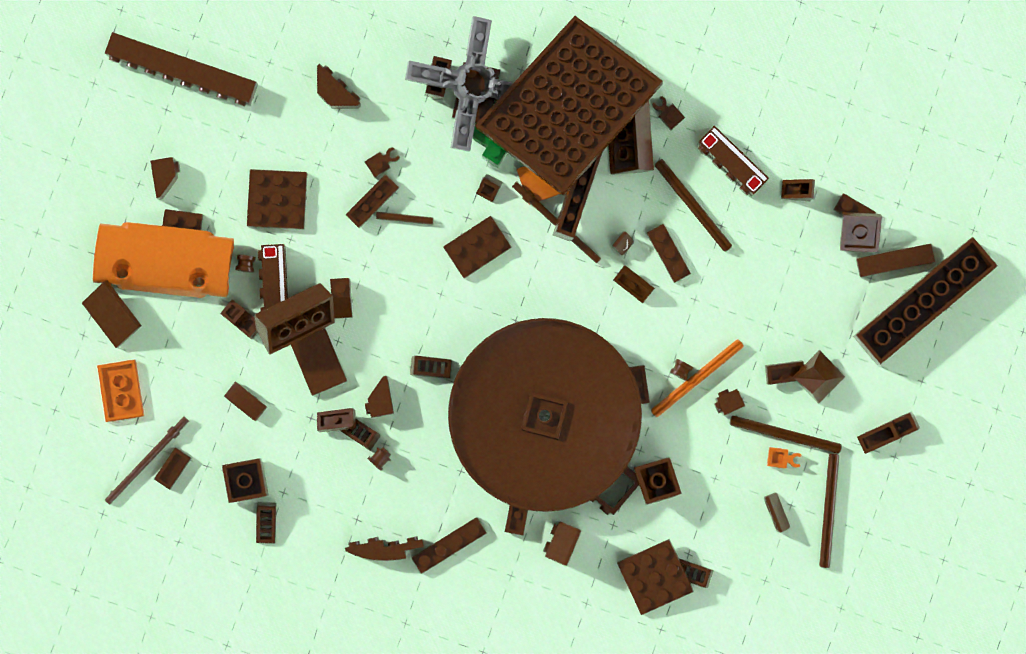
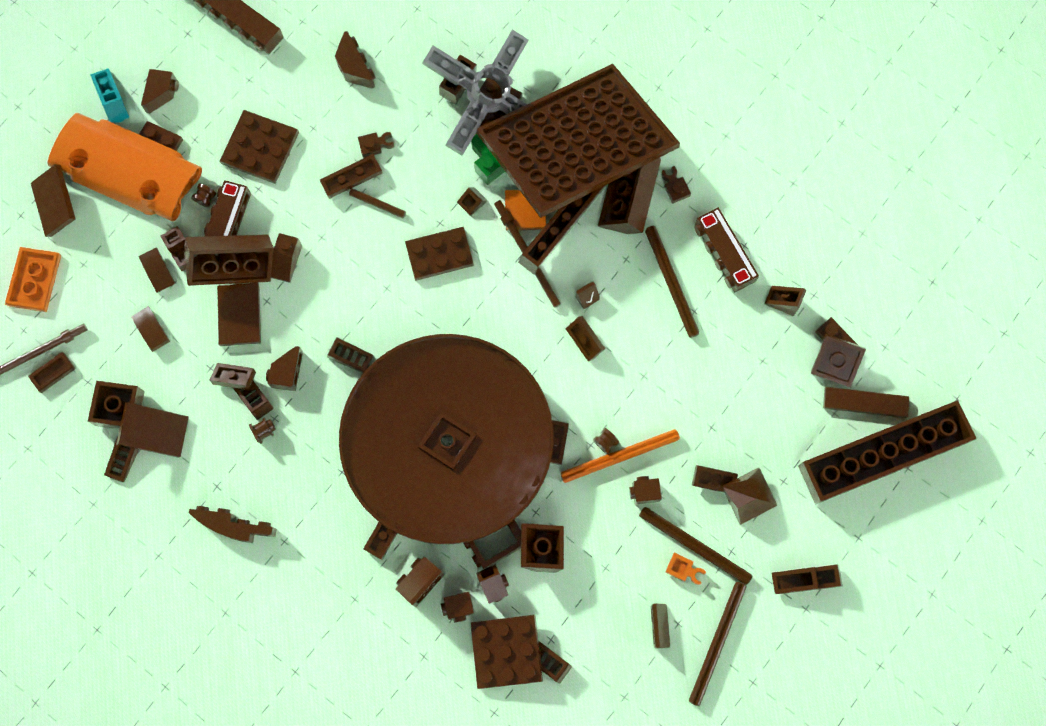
camera: 25 degrees right, 10 degrees down
(120, 196) = (109, 96): none -> teal slope
(229, 346) = (156, 270): none -> reddish brown slope
(286, 491) = (152, 430): none -> reddish brown tile
(448, 545) = (300, 544): reddish brown plate -> none
(602, 553) = (457, 607): none -> reddish brown brick
(625, 524) = (493, 584): none -> reddish brown brick
(668, 253) = (631, 320): reddish brown plate -> none

